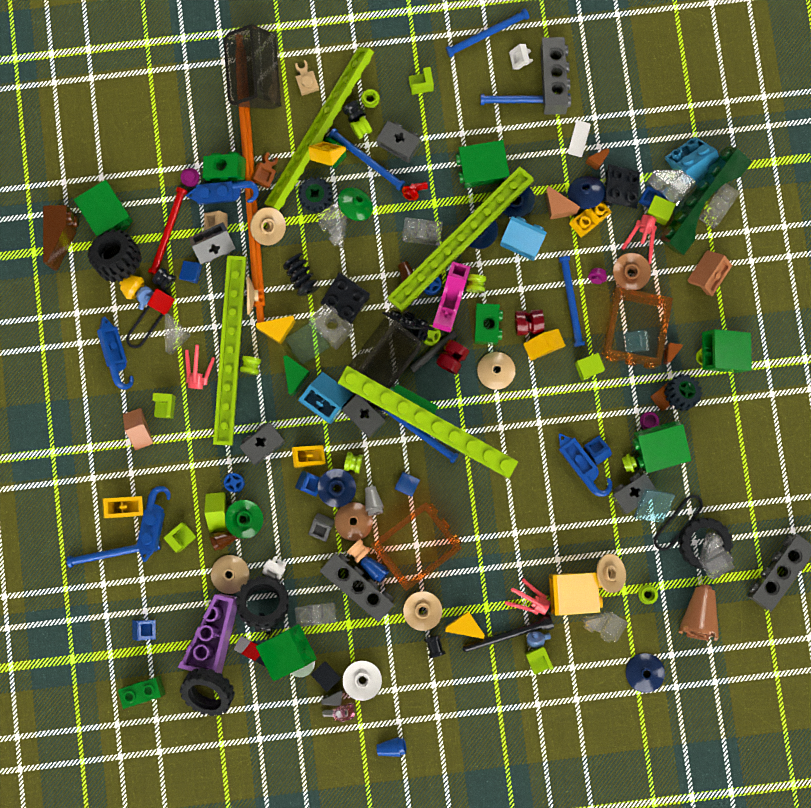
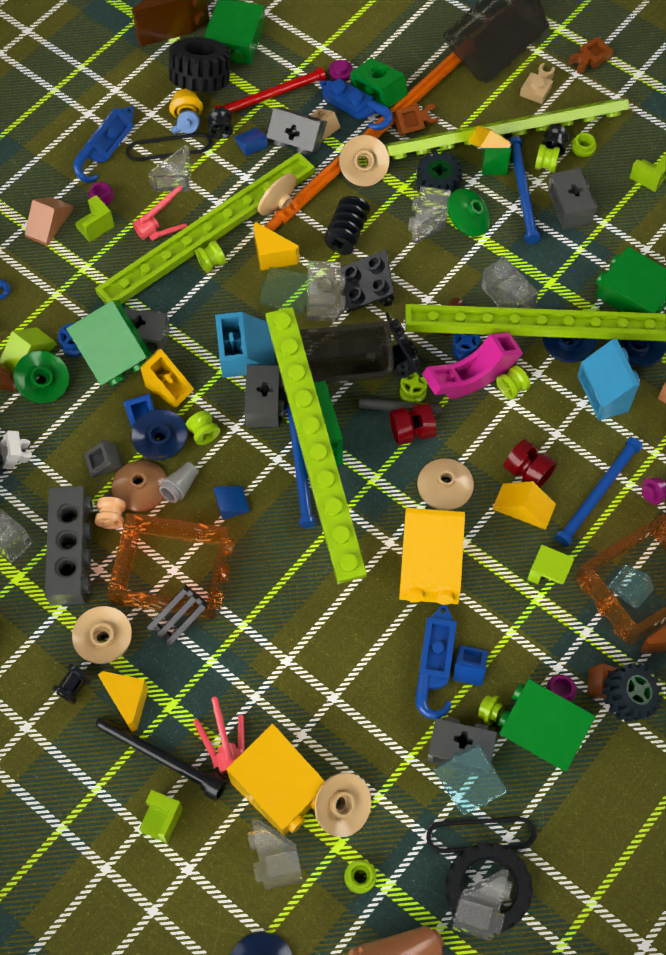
camera: 45 degrees right, 20 degrees down
(149, 386) = (103, 191): none -> magenta plate
(161, 302) = (195, 136): red slope -> none
(262, 469) = (109, 343): none -> brick
(294, 374) = (239, 298): green slope -> none
(316, 29) = (592, 53): none -> dark orange plate
(375, 569) = (104, 547): blue cone -> none
(410, 192) = (537, 247): red plate -> none
(452, 567) = (162, 631): none -> tile
(482, 334) = (489, 415): green brick -> none
(535, 420) = (432, 556): none -> yellow slope
(537, 639) = (184, 791): medium blue piece -> none

